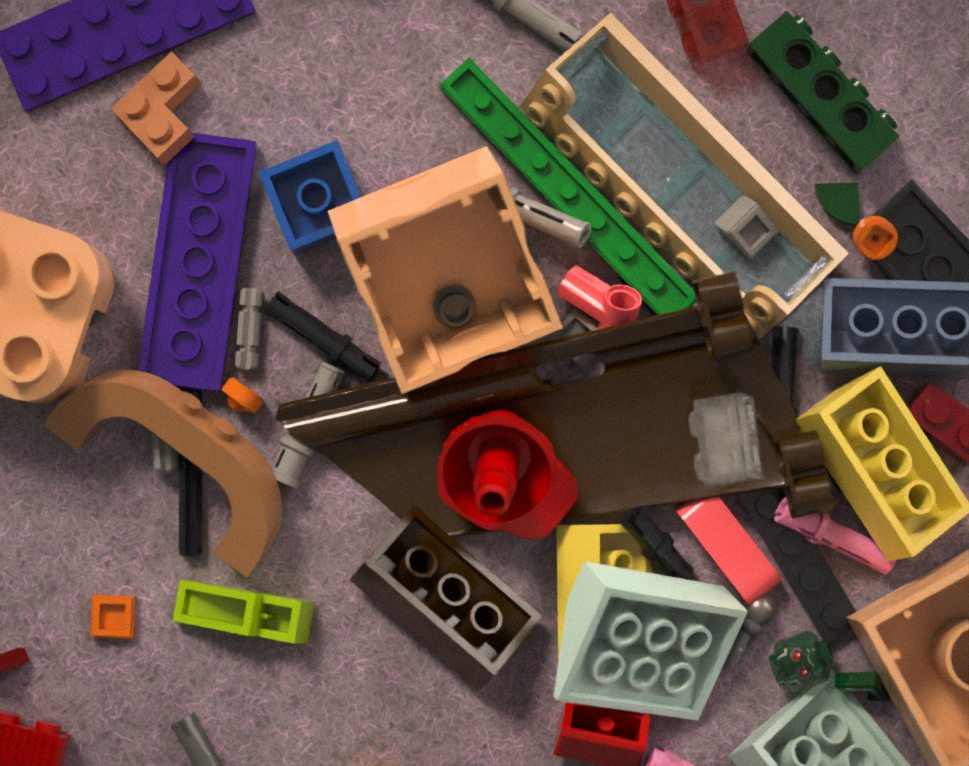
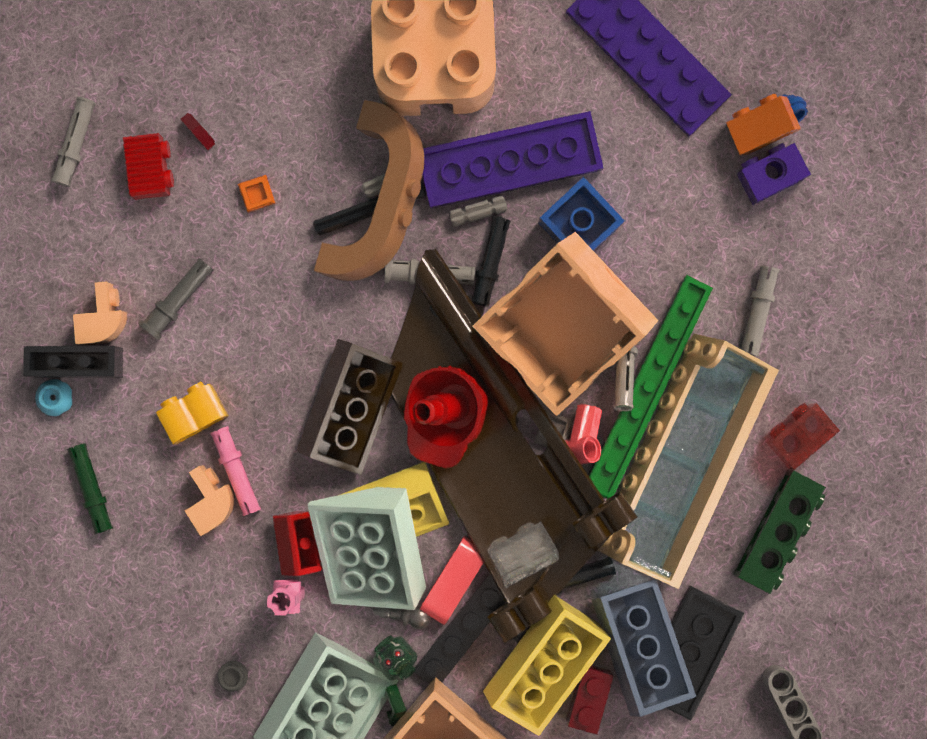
camera: 65 degrees right, 0 degrees up
(150, 106) = (601, 90): nougat plate -> none
(241, 397) = (431, 222): orange tile -> none
(243, 611) = (291, 277): lime slope -> none
(454, 306) = (544, 340): dark grey plate -> none
(657, 544) = (436, 533): black pin -> none
(747, 226) = (670, 514): light grey slope -> none
(823, 530) = (487, 644): bright pink pin -> none
(839, 201) = (711, 570): dark green tile -> none
(875, 238) = (695, 603): orange tile -> none

